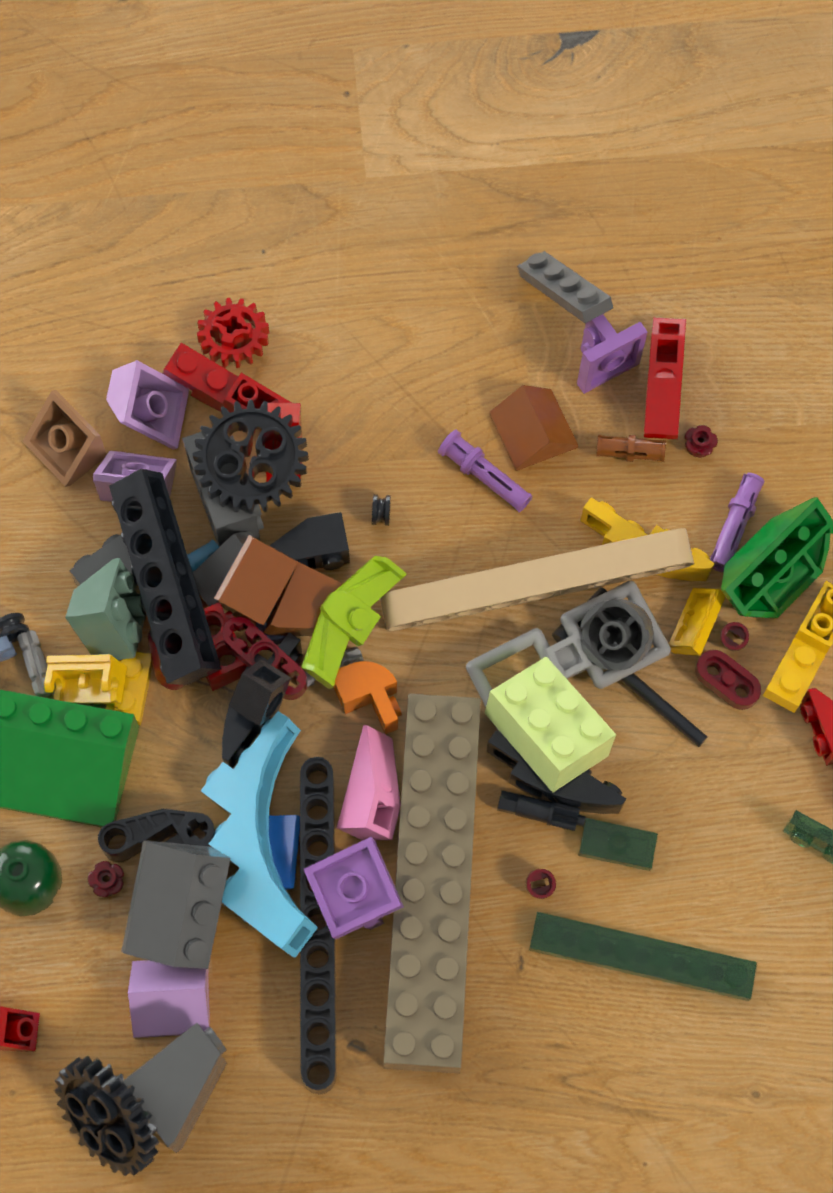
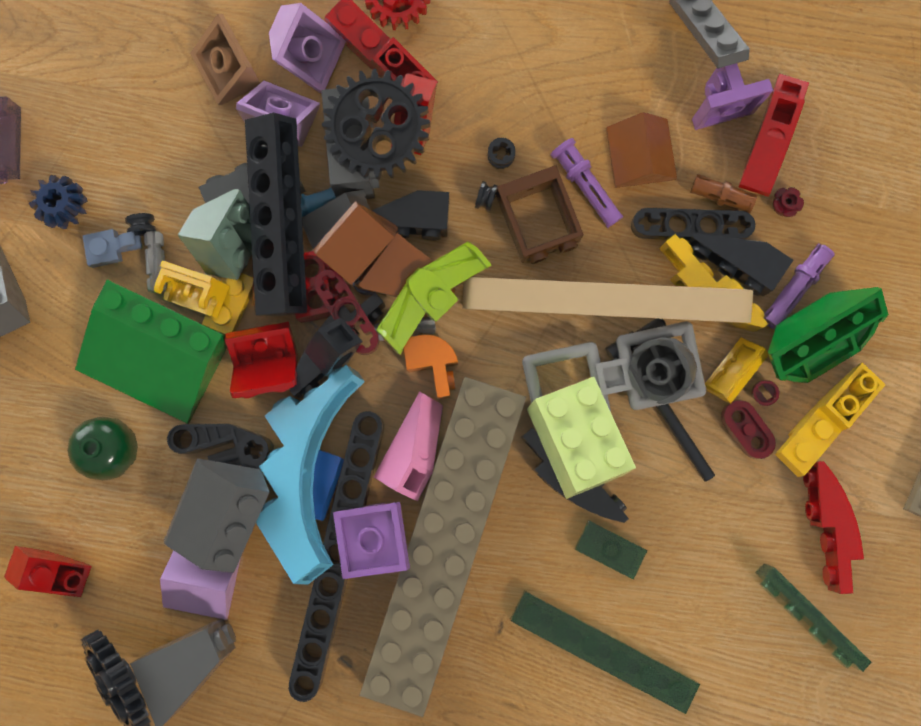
camera: 15 degrees right, 15 degrees up
(109, 888) = (179, 467): dark red plate -> none
(182, 732) = (262, 360): none -> red bracket
(394, 468) = (495, 146): none -> black bush
(425, 487) = (528, 186): none -> reddish brown window
(541, 810) = (553, 504): black piece -> none
(541, 891) = (534, 574): dark red hinge -> none
(606, 482) = (692, 221): none -> black beam
(669, 507) = (749, 261): none -> black slope

